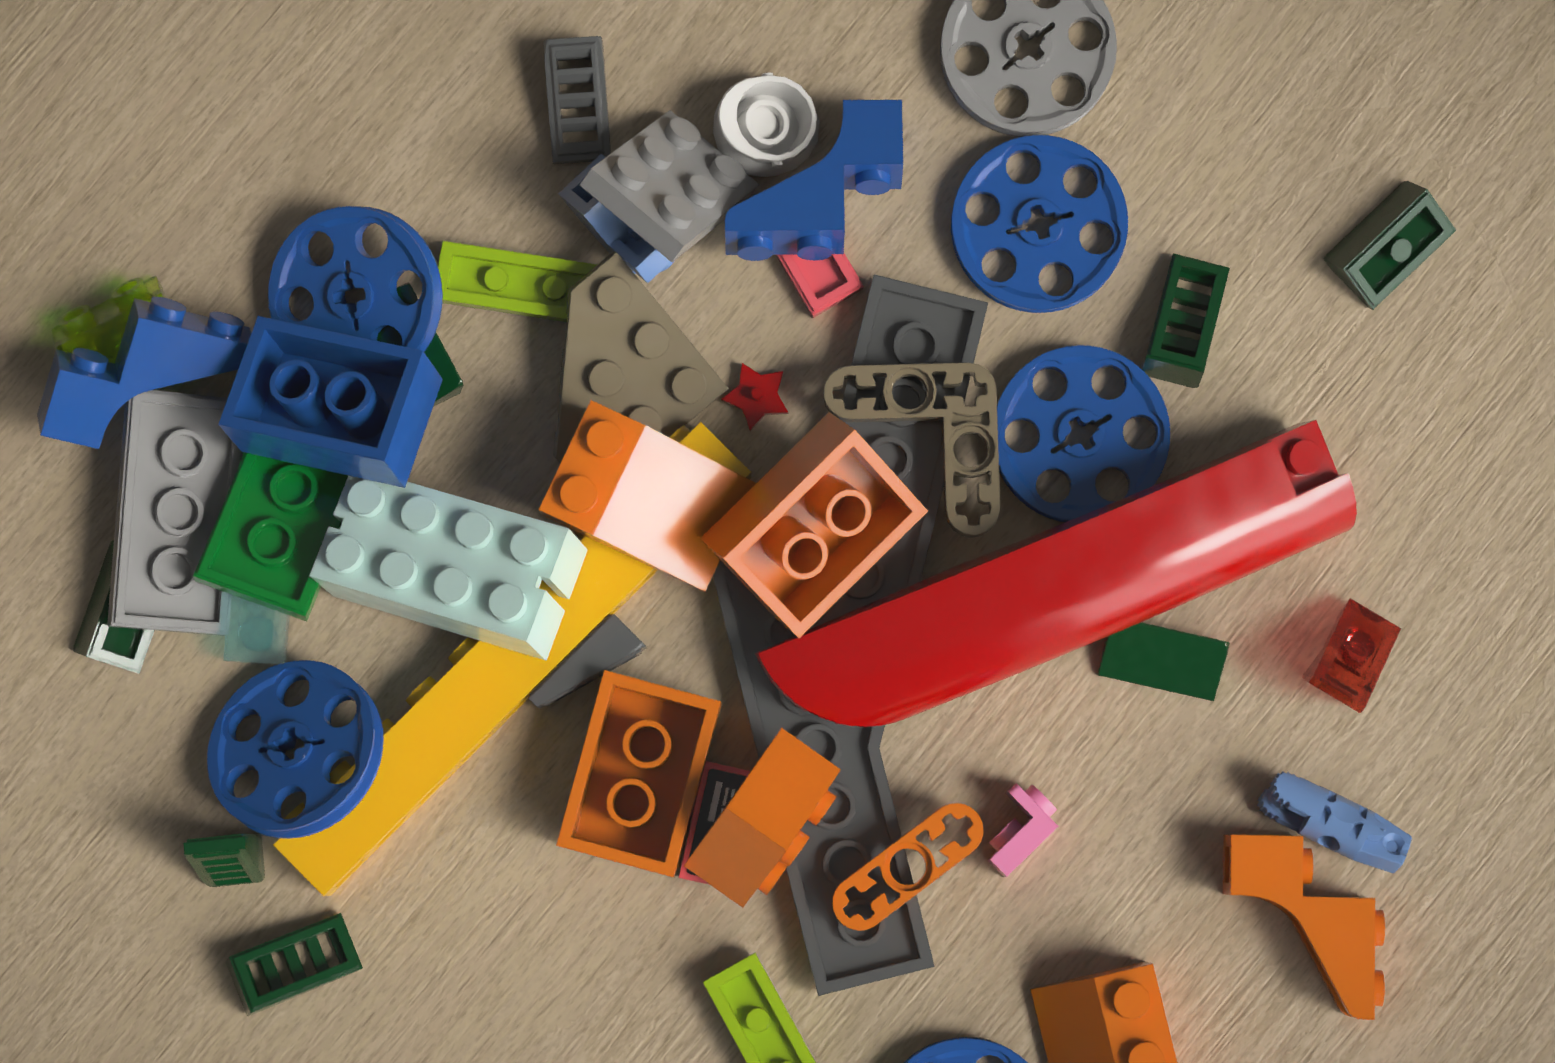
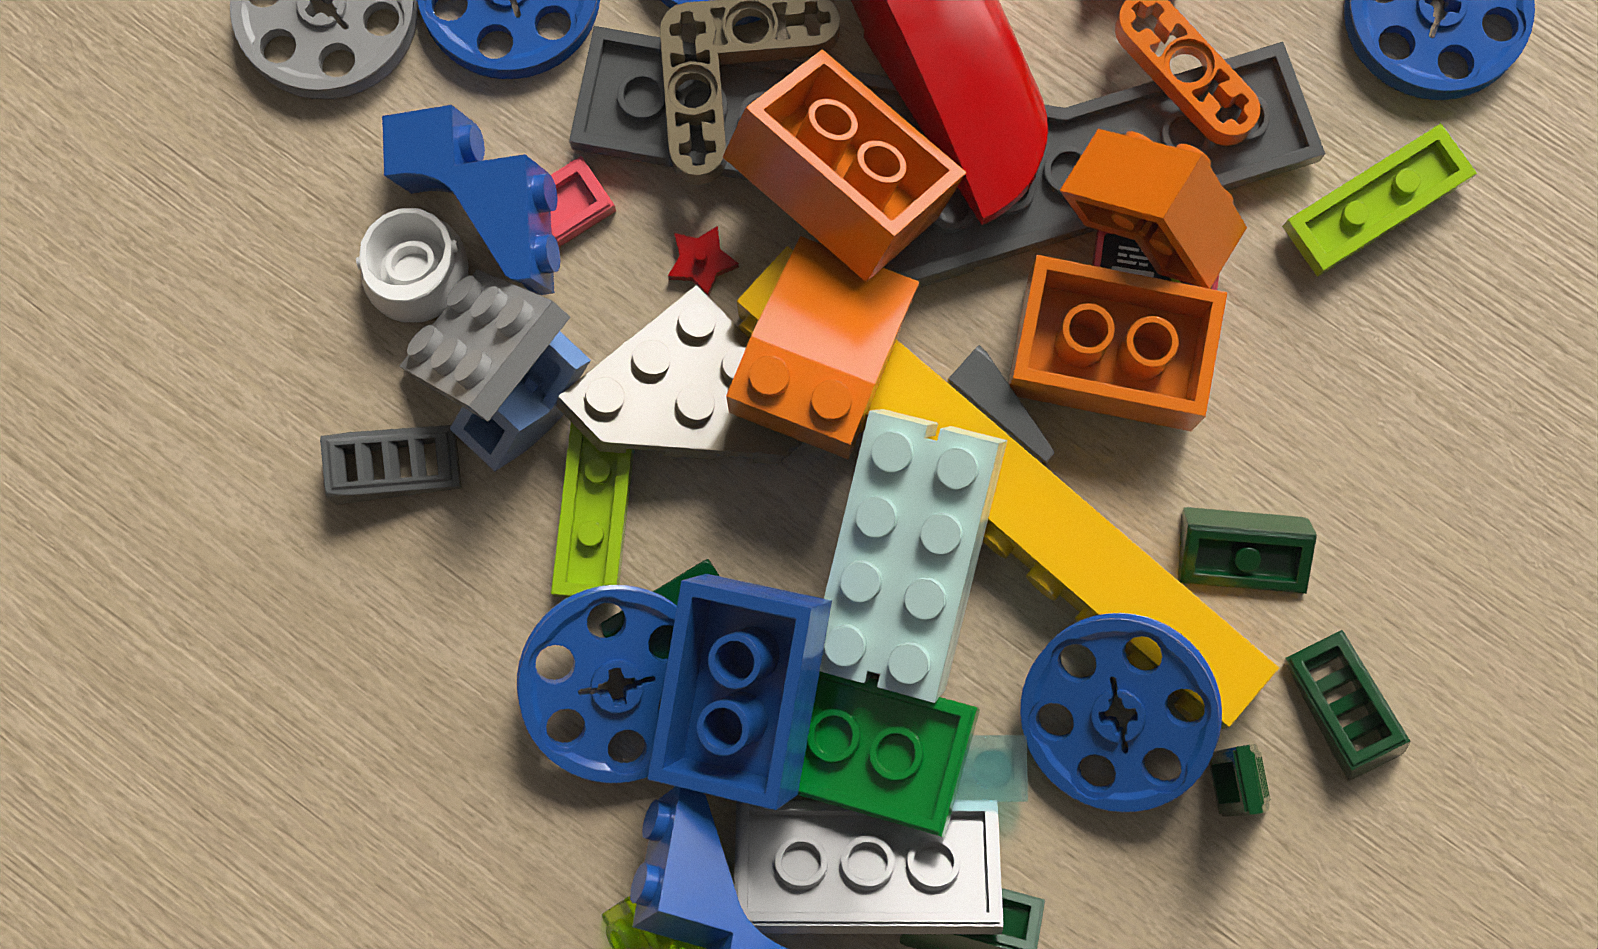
camera: 90 degrees left, 5 degrees down
(446, 886) = (1246, 550): none -> dark green slope

